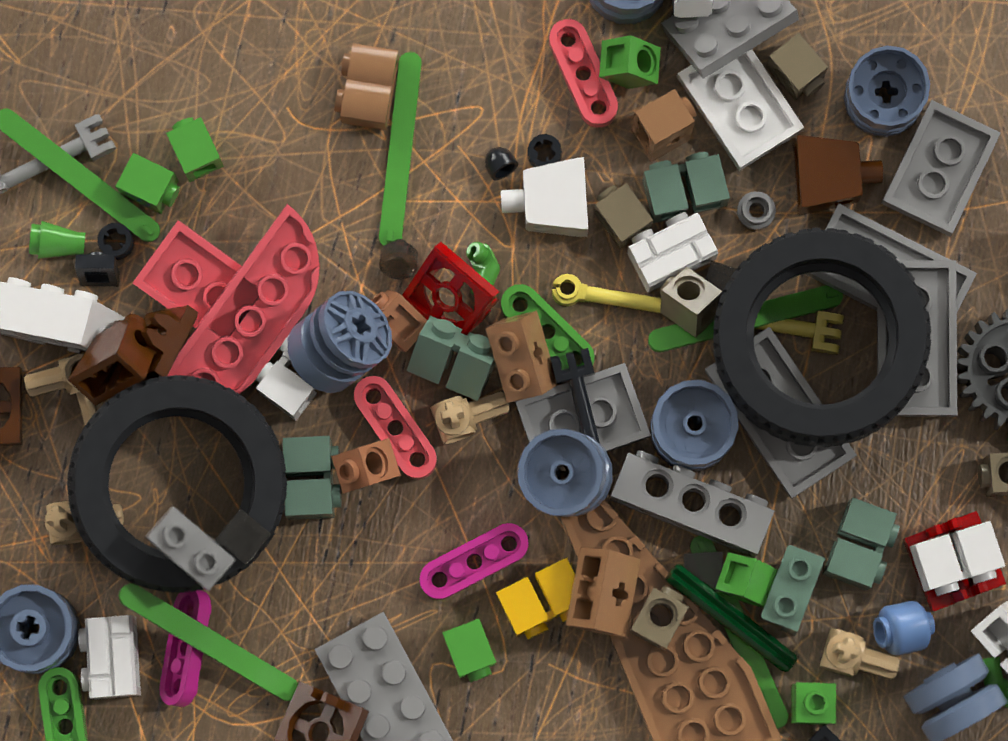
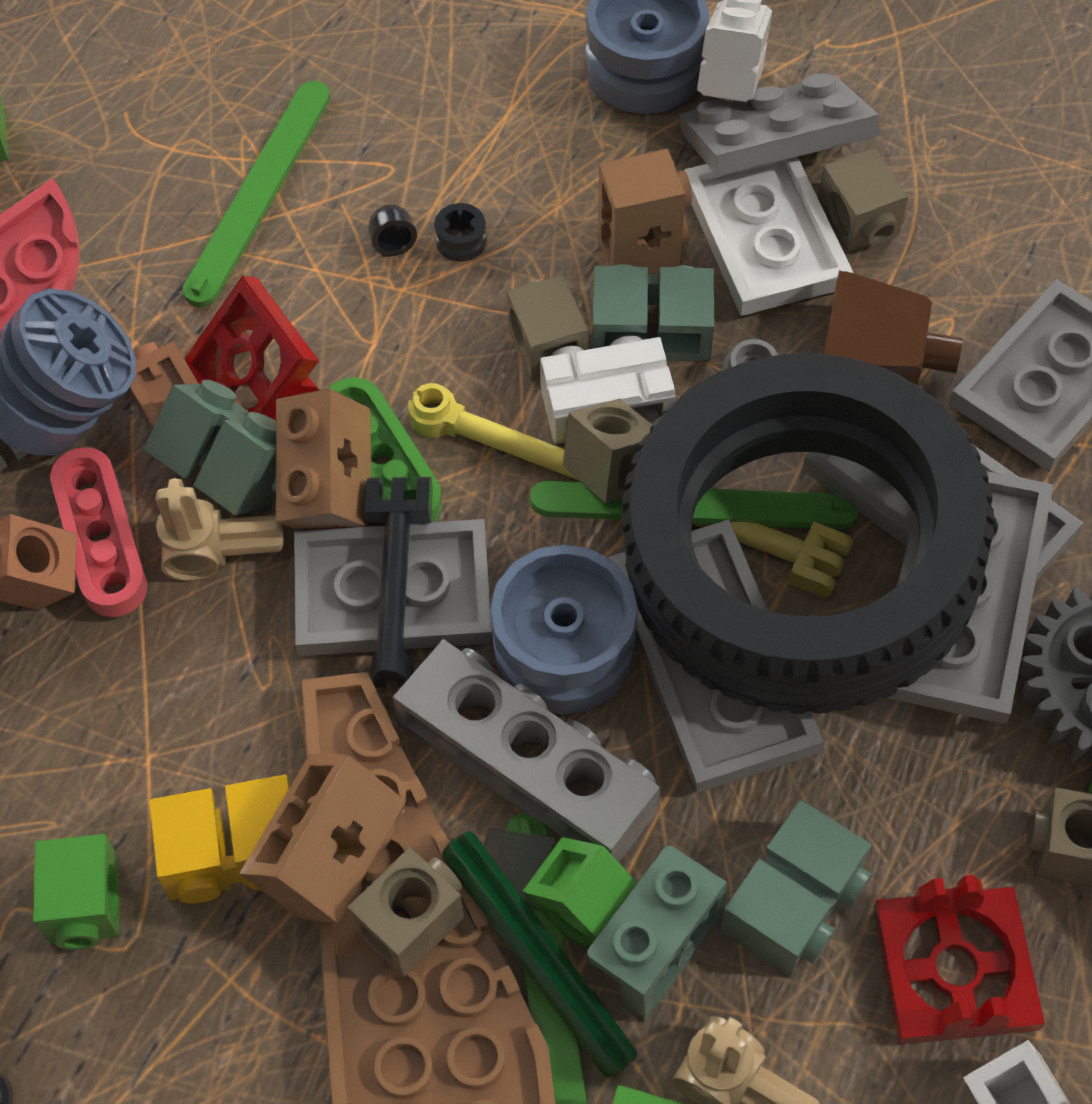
camera: 15 degrees right, 20 degrees down
(368, 86) = (241, 99): medium nougat brick -> none
(398, 260) = (191, 308): clear smoke tile -> none
(483, 261) = (324, 342): bright green arm -> none
(490, 551) = (113, 749): dark pink plate -> none
(552, 198) = (449, 283): white torso -> none
(583, 57) = (555, 180): coral plate -> none
(588, 473) = (324, 633): sand blue wheel -> none
(629, 62) = (615, 129): bright green brick -> none
(902, 76) = (990, 244): sand blue wheel -> none
(903, 628) = (841, 1051): medium blue head -> none
(976, 552) = (980, 949): white piece -> none

